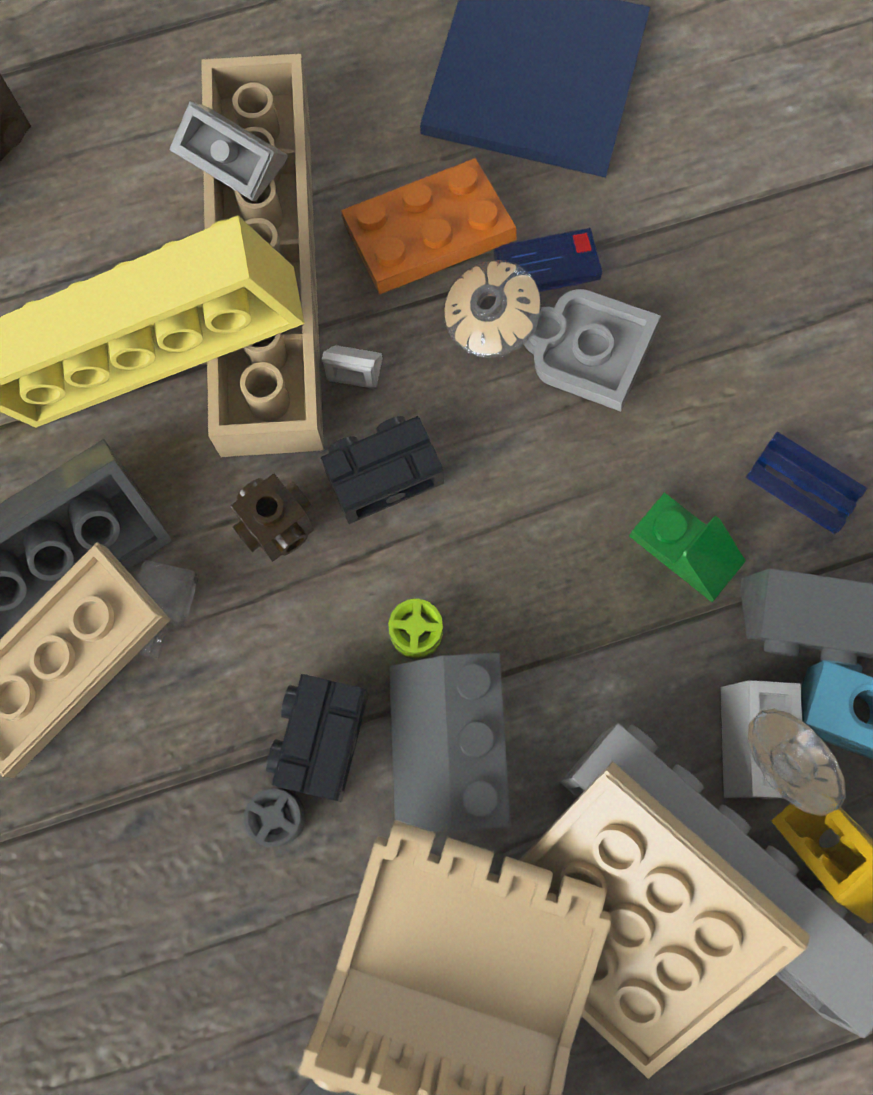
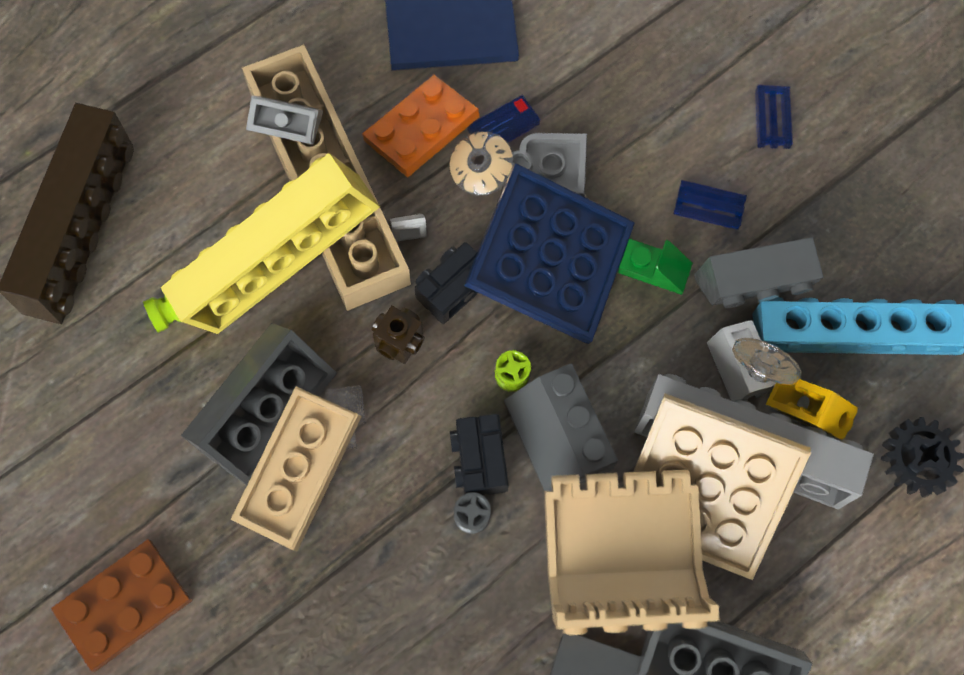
camera: 25 degrees left, 5 degrees down
(537, 476) = (550, 254): none -> dark blue tile

